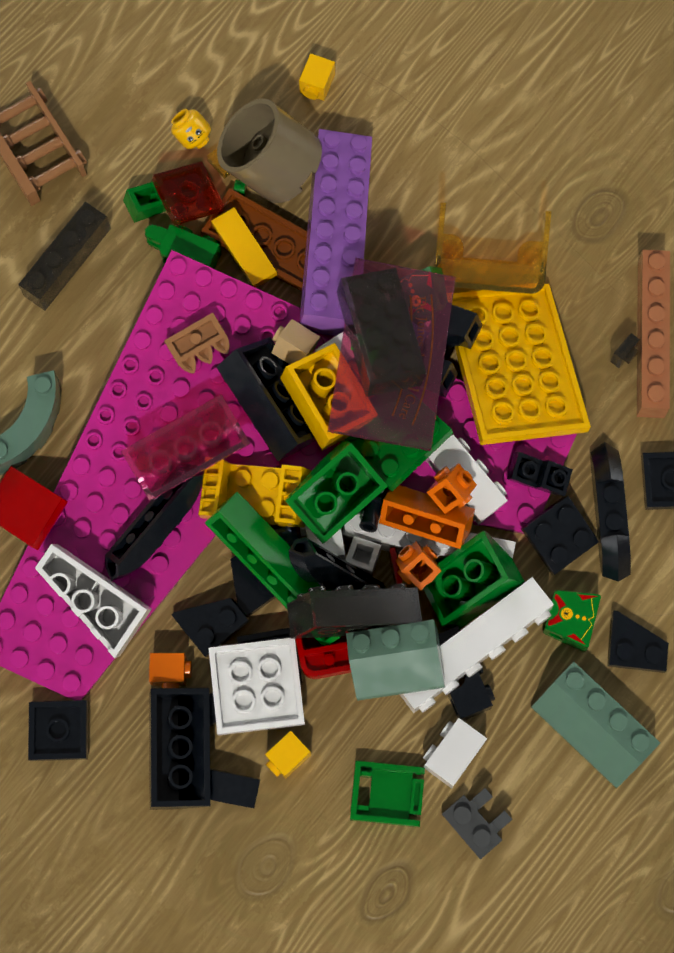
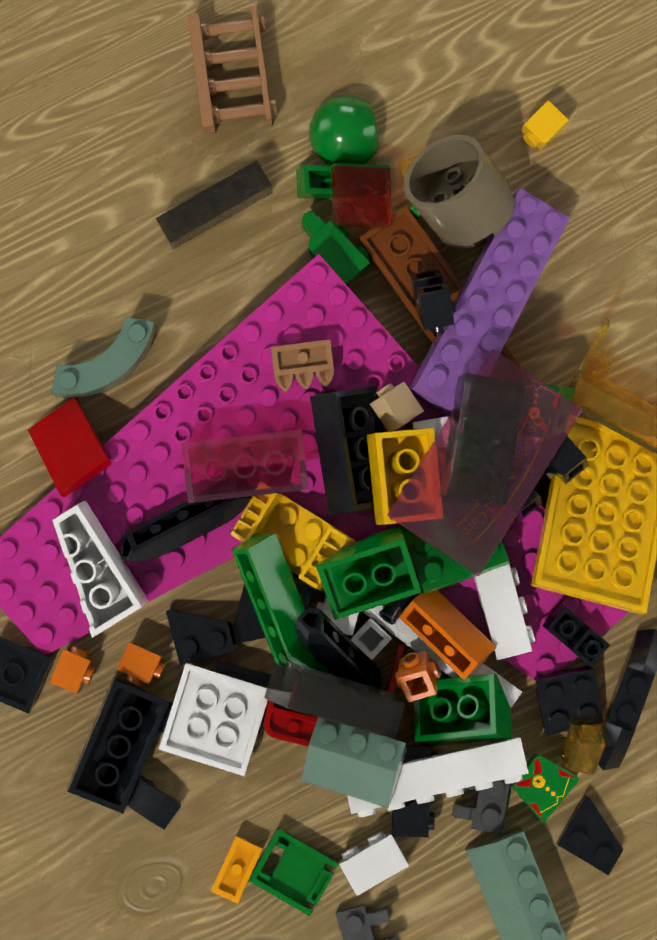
camera: 20 degrees right, 10 degrees up
(110, 702) = (73, 670): none -> orange brick
(149, 150) = (344, 131): none -> green cylinder
(190, 129) = (394, 126): yellow head -> none
(244, 247) = (392, 276): yellow tile -> none
(286, 245) = (432, 300): none -> black arch
(287, 755) = (215, 795): yellow brick -> none
(335, 814) = (236, 869): none -> light orange plate
(452, 488) = (482, 620): orange brick -> none
(533, 656) = (488, 810): none -> dark grey plate
(591, 569) = (582, 749): none -> clear yellow brick

